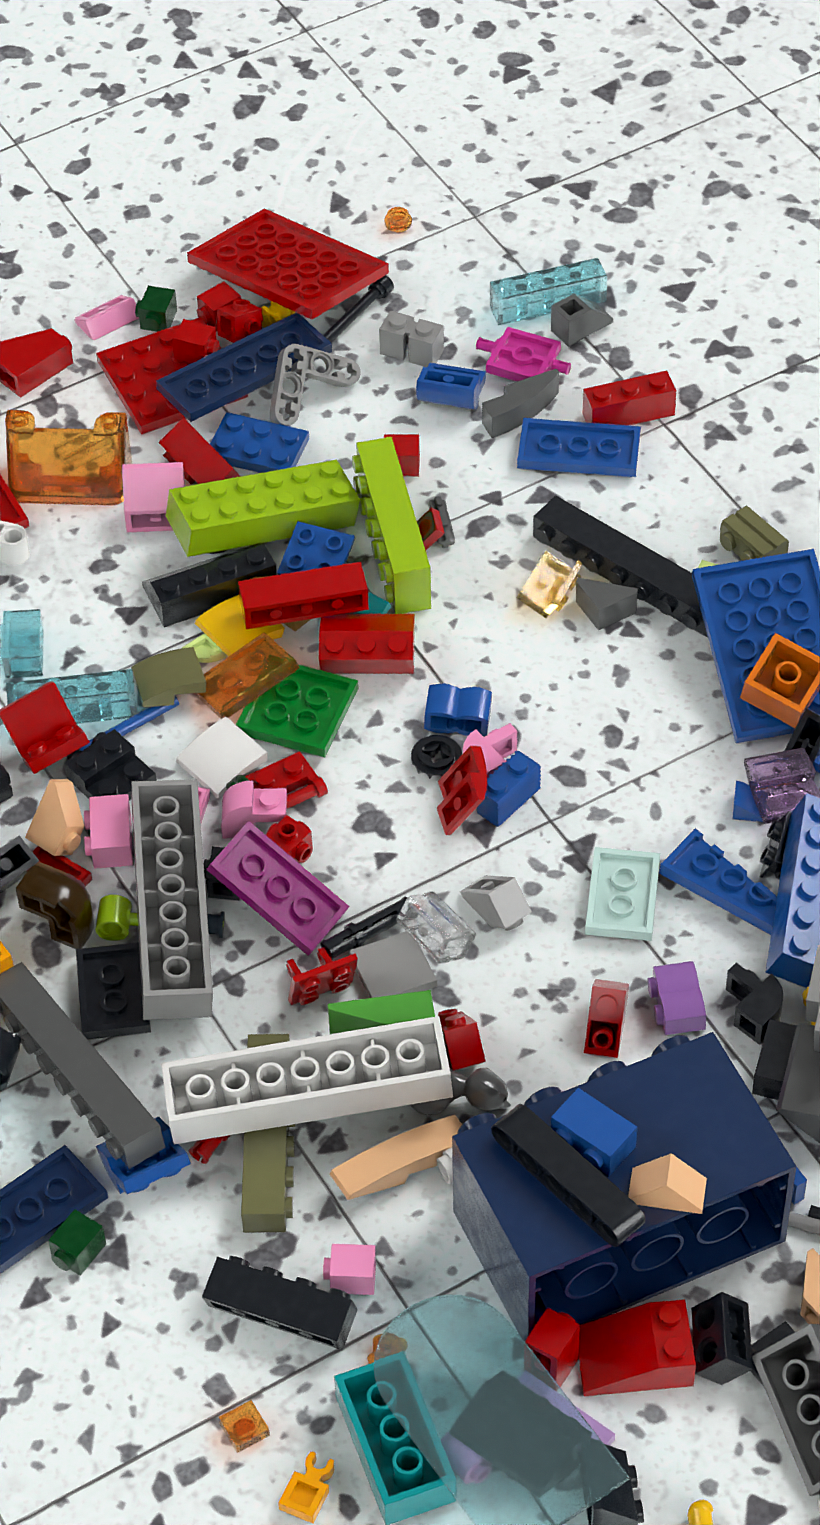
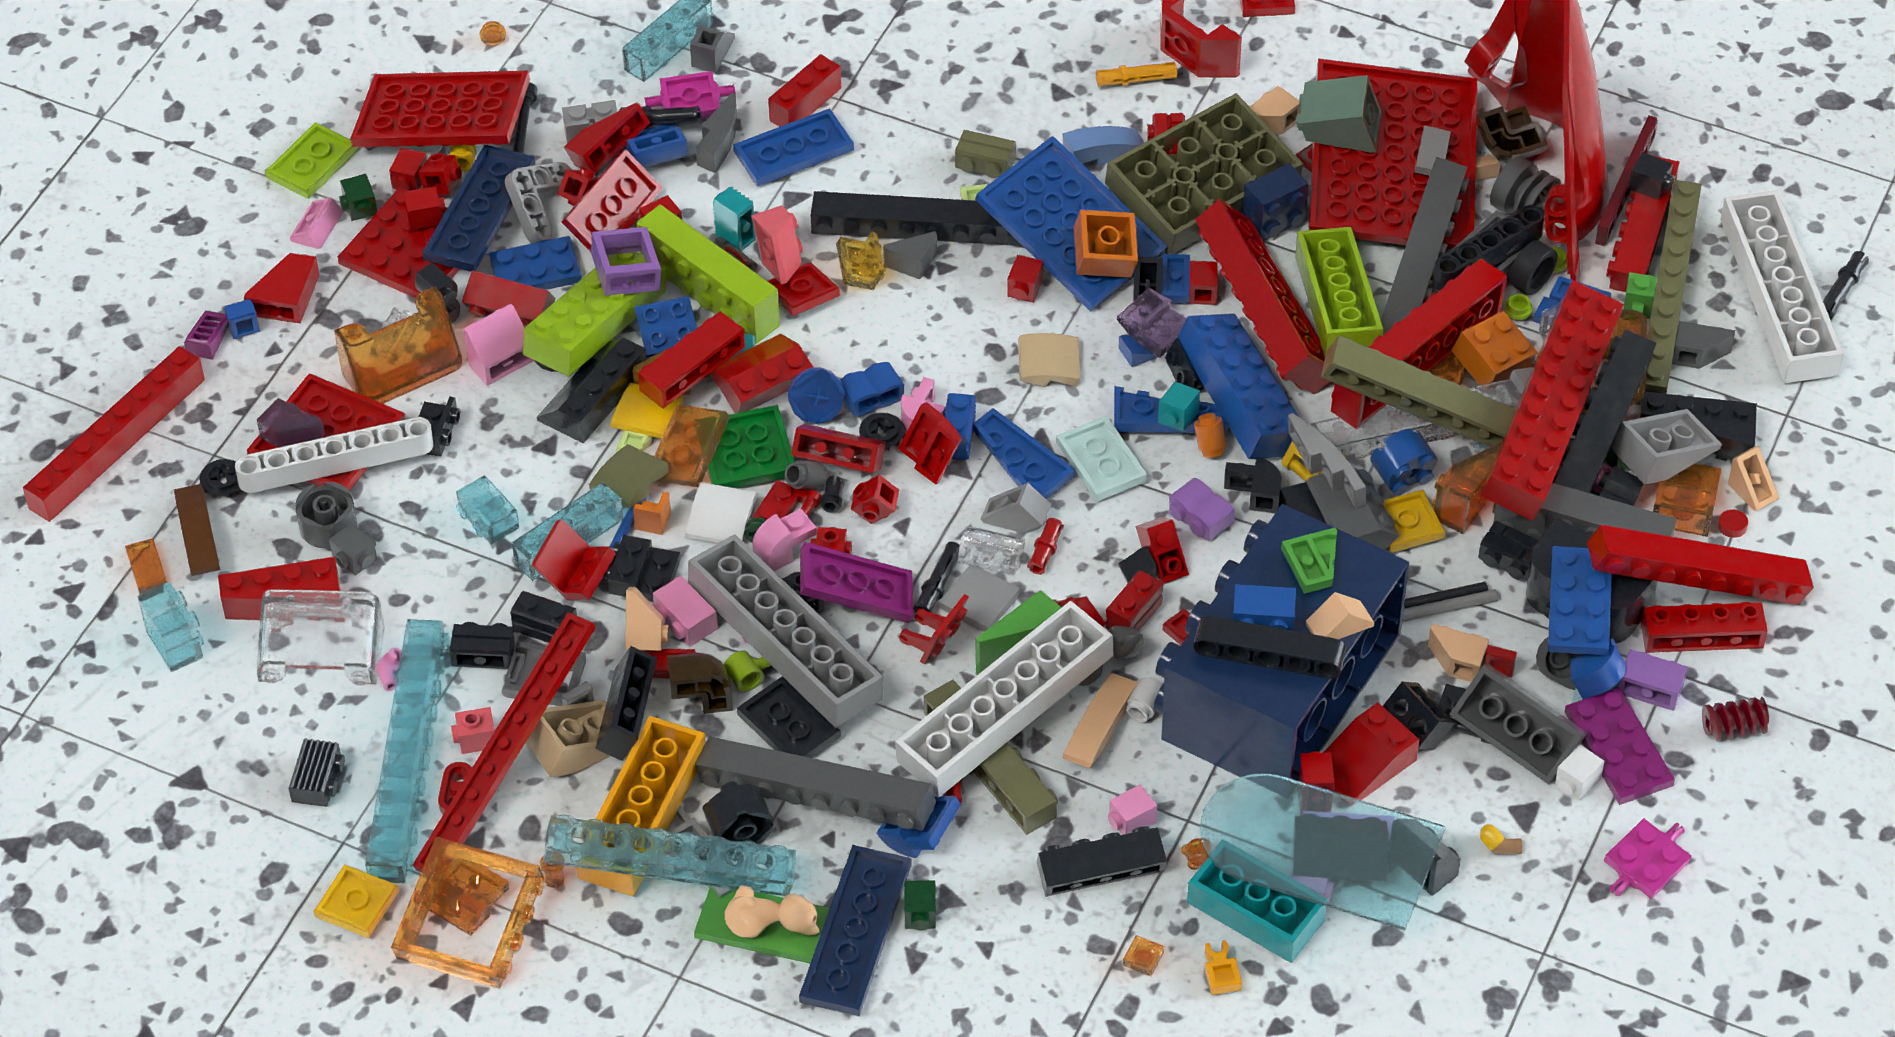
camera: 35 degrees left, 0 degrees up
(50, 545) = (442, 421): none -> black bracket
(141, 426) = (433, 276): none -> black brick
(149, 259) = (311, 160): none -> lime tile
(162, 726) = (652, 516): none -> orange panel
(319, 495) = (616, 278): none -> medium lavender window
(325, 760) = (806, 475): none -> dark grey brick
(334, 796) = (831, 499): none -> black pin
(350, 391) = (576, 184): none -> red brick
(364, 416) = (612, 199): none -> plate
(367, 817) = (875, 499): none -> red brick
(376, 750) = (838, 448): none -> red brick
(396, 688) = (816, 395): none -> blue tile
(406, 357) = (604, 139): none -> red slope
(460, 486) = (734, 218): none -> teal brick
(467, 357) = (671, 115): none -> black pin
(474, 583) = (805, 289): none -> red plate
(480, 527) = (778, 242): none -> coral slope
(496, 951) = (1045, 546): none -> red pin
(530, 1058) = (1135, 602): none -> red brick
(548, 857) = (1022, 455): none -> blue wing
(570, 1023) = (1138, 561): none -> black slope
(653, 768) = (1049, 358): none -> tan slope
(691, 1107) = (1312, 559): none -> bright green wing
(693, 678) = (1025, 278): none -> red brick
(731, 880) = (1178, 406): none -> teal brick
(745, 927) = (1210, 435): none -> orange brick

